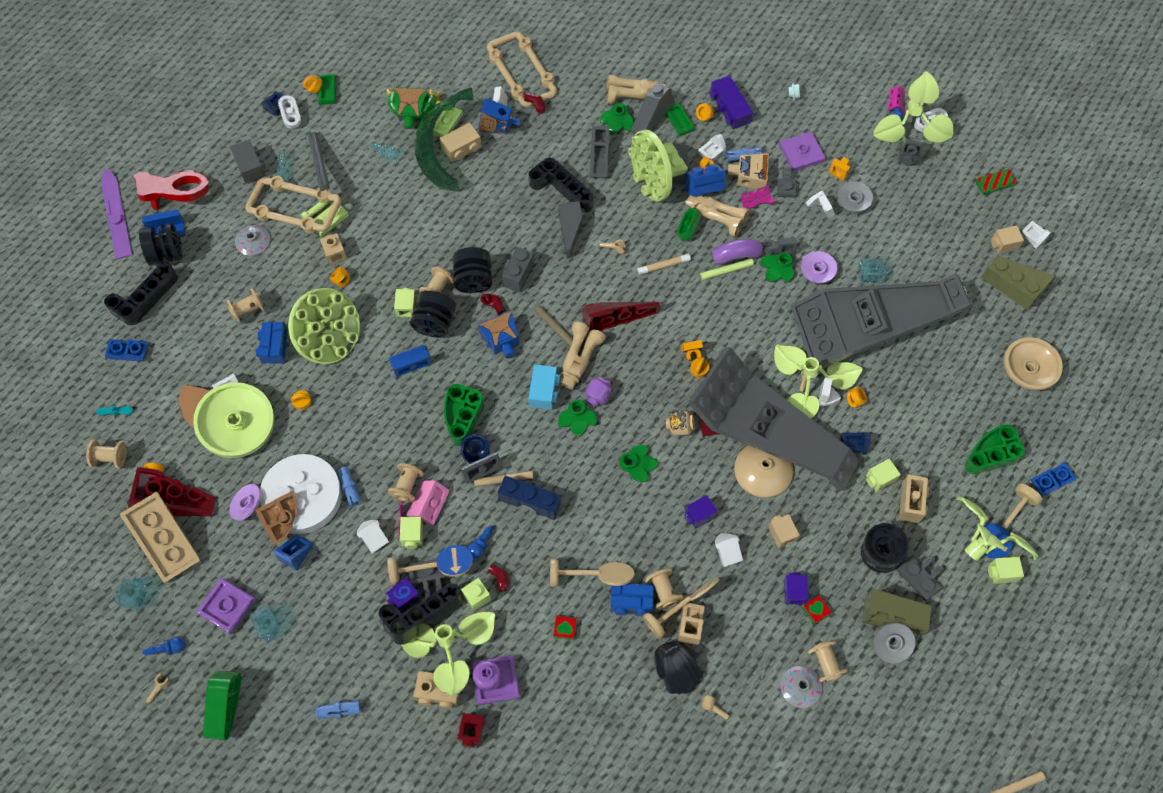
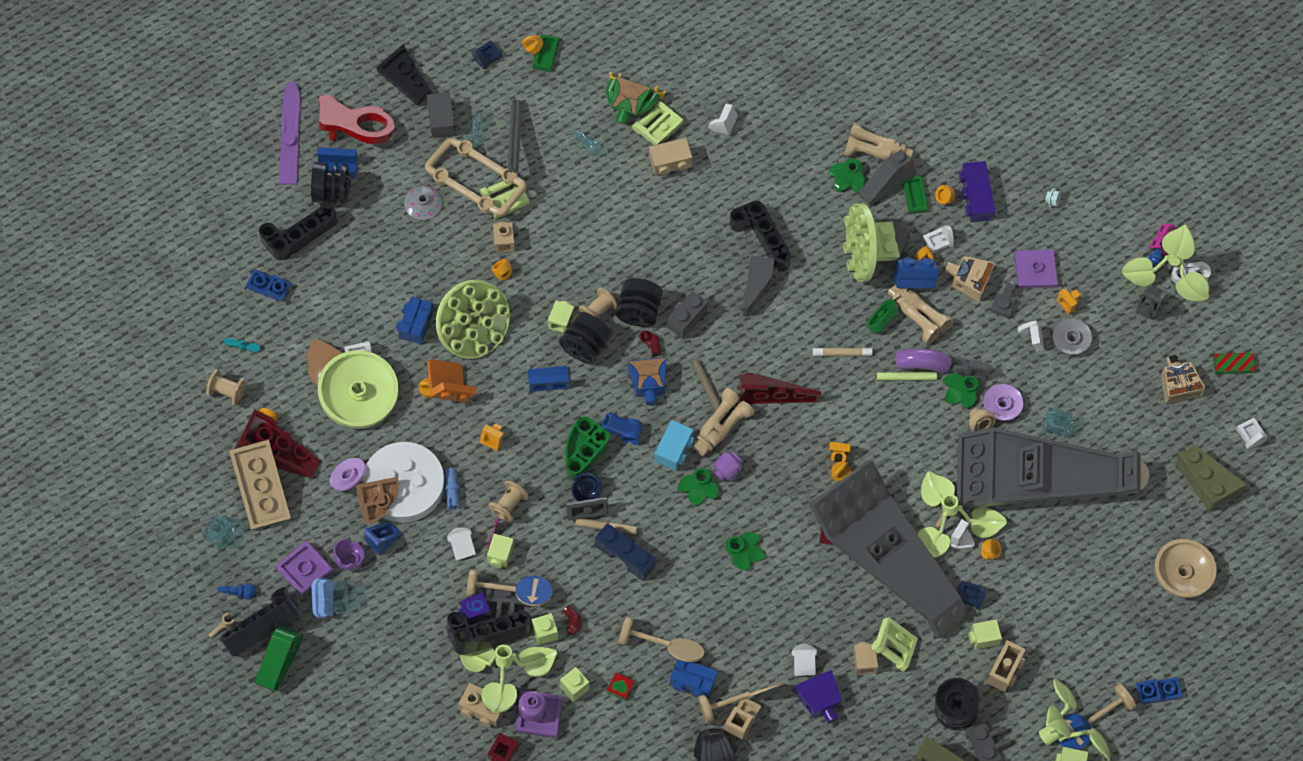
camera: 15 degrees right, 0 degrees up
(206, 138) = (403, 74): none -> black wing
(211, 657) = (262, 623): none -> black beam
(243, 306) = (398, 273): tan hose -> none
(247, 624) = (320, 590): none -> light blue piece
(259, 576) = (346, 548): none -> medium lavender hair
(289, 113) = (499, 70): white plate -> none
(317, 389) = (447, 381): none -> orange bracket
(338, 709) = (384, 696): medium blue pin -> none
(373, 427) = (492, 436): none -> light orange tile
(424, 142) = (630, 147): clear green windscreen -> none
(428, 501) = (525, 526): bright pink panel -> none
(479, 544) = (559, 585): blue bar -> none
(495, 384) = (627, 429): none -> blue piece
(496, 118) = (717, 140): blue torso -> none
(521, 640) = (574, 684): none -> yellowish green brick
(525, 45) = (749, 112): tan bar -> none
(537, 101) = (767, 132): dark red arm -> none
(599, 152) = (815, 208): dark grey slope -> none
(618, 244) = (799, 317): tan hand -> none
(664, 589) = (727, 677): tan hose -> none
(680, 422) = (801, 522): head -> none
(700, 512) = (789, 616): dark purple brick -> none
(735, 154) = (959, 253): medium blue pin -> none
(755, 579) = (820, 696): none -> dark purple torso
(759, 194) = (979, 313): dark pink piece -> none
(762, 480) = (864, 604): tan dish -> none
(795, 589) = (856, 717): dark purple brick -> none
(805, 287) = (981, 419): none -> tan brick
(809, 503) = (898, 638): none -> yellowish green plate
(816, 609) = (870, 743): tile -> none
(960, 207) = (1180, 381): none -> torso
(994, 444) = (1111, 638): green beam -> none
(1007, 239) = (1216, 430): tan brick -> none

